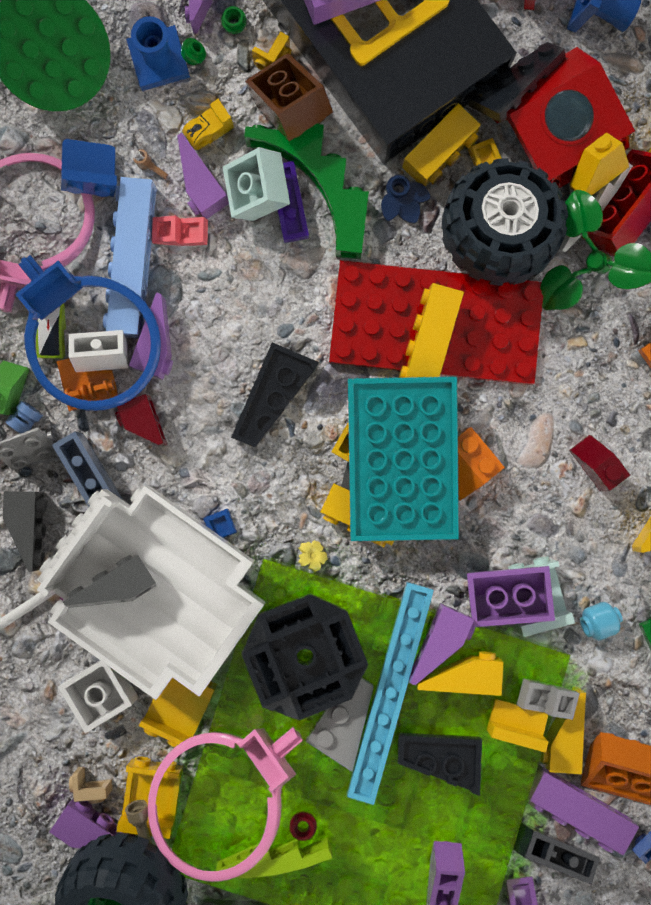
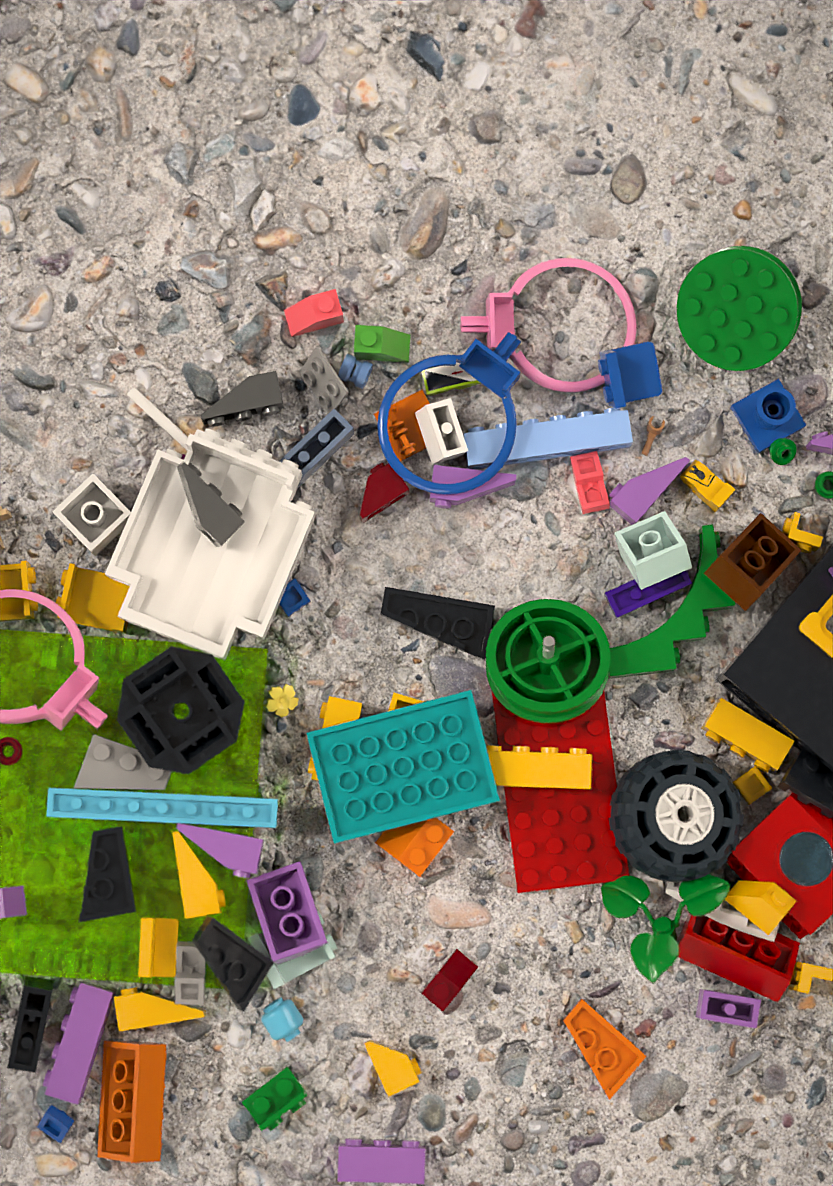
camera: 75 degrees right, 5 degrees down
(335, 304) = (547, 660): none -> green wheel
(406, 202) = (678, 711): dark blue plate -> none
(547, 658) = (232, 960): none -> black wing

